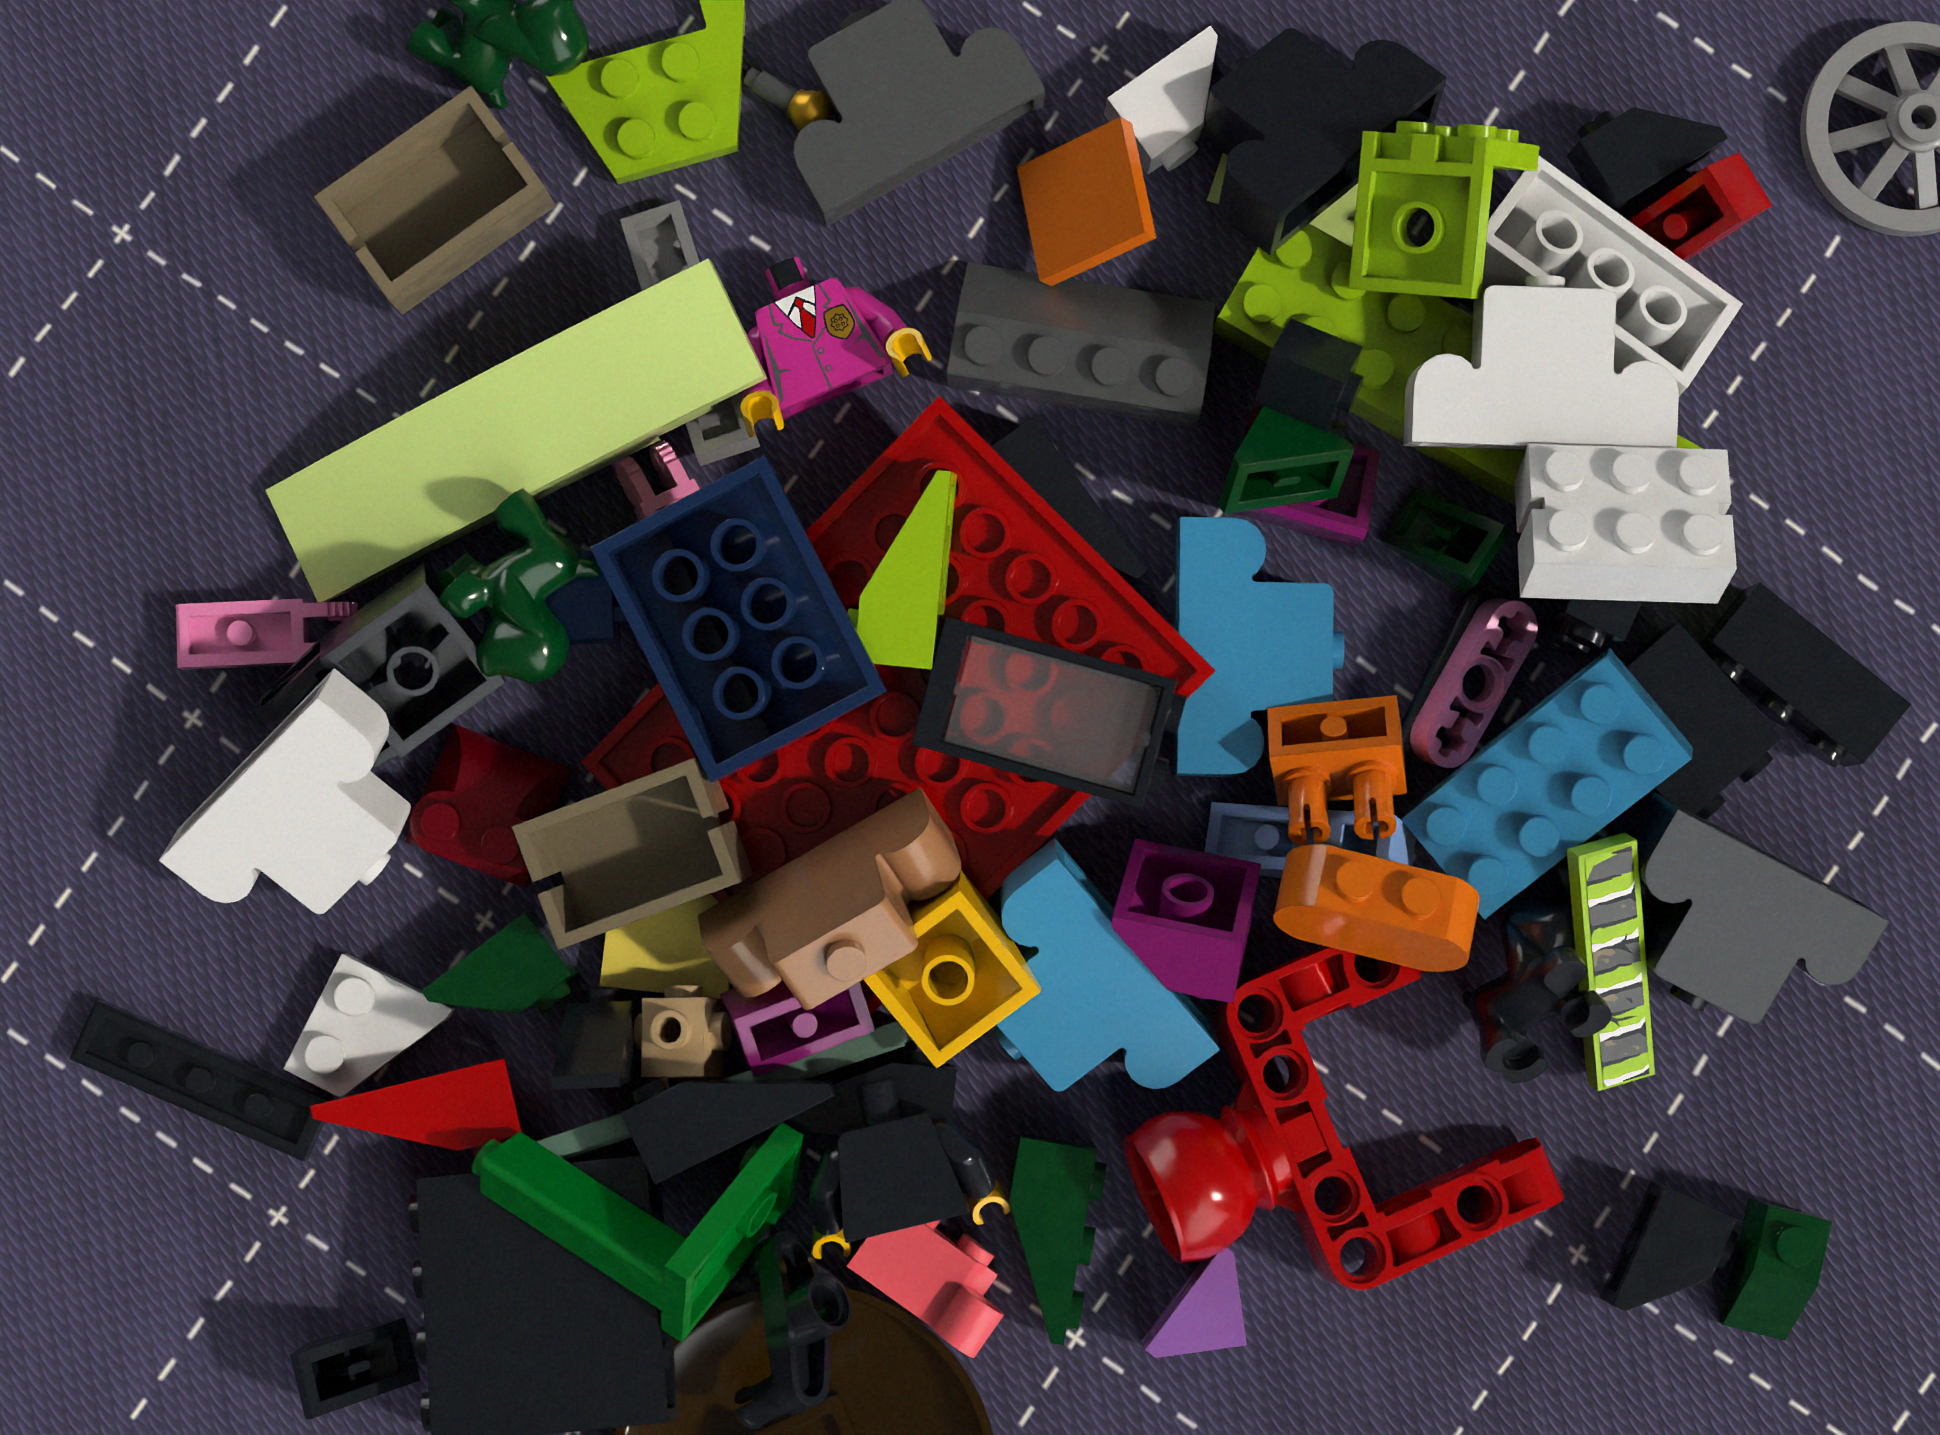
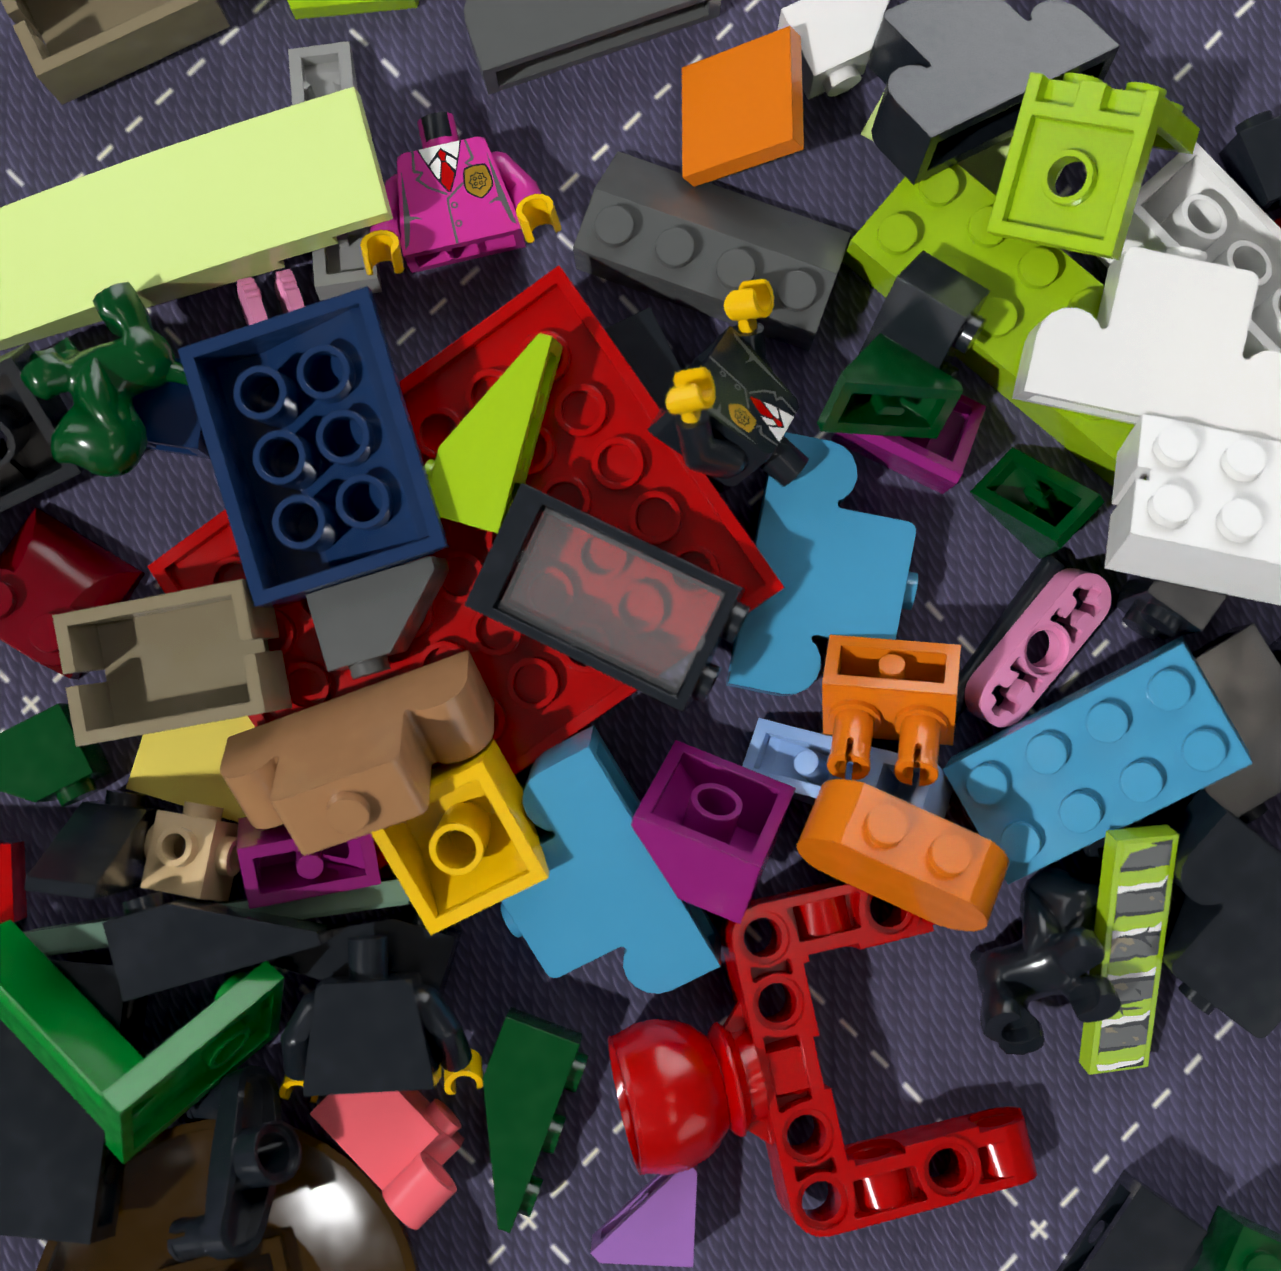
camera: 15 degrees right, 0 degrees up
(822, 770) = (375, 615): none -> dark grey slope
(1129, 502) = (730, 404): none -> black torso

